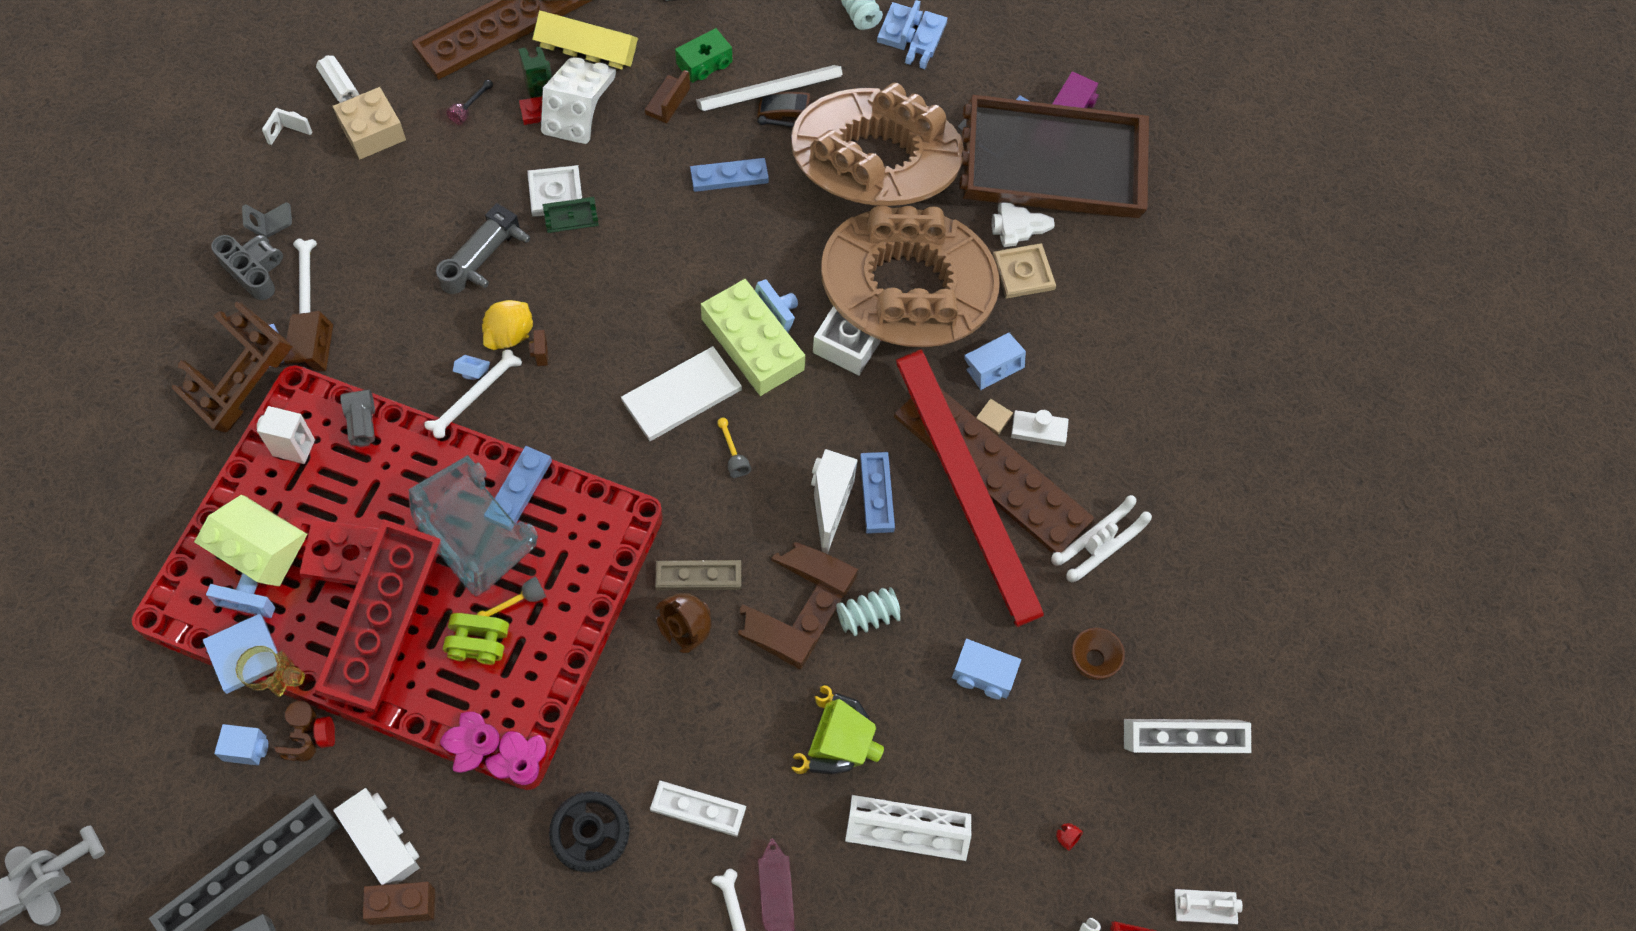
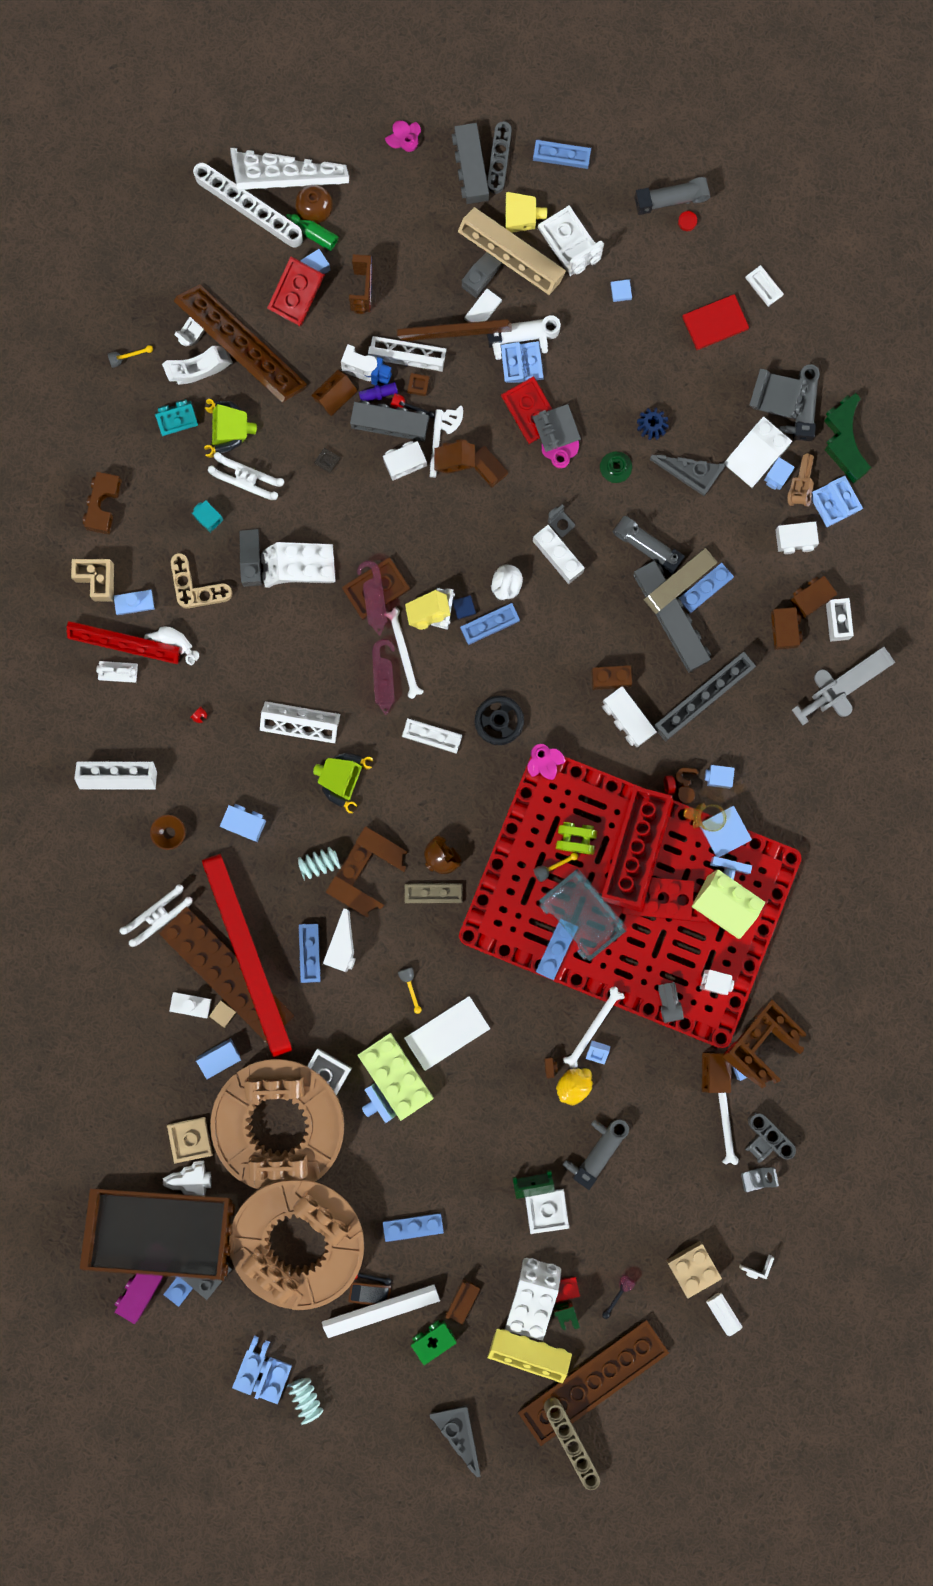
camera: 175 degrees left, 20 degrees up
(465, 741) = (578, 772): dark pink plate -> none

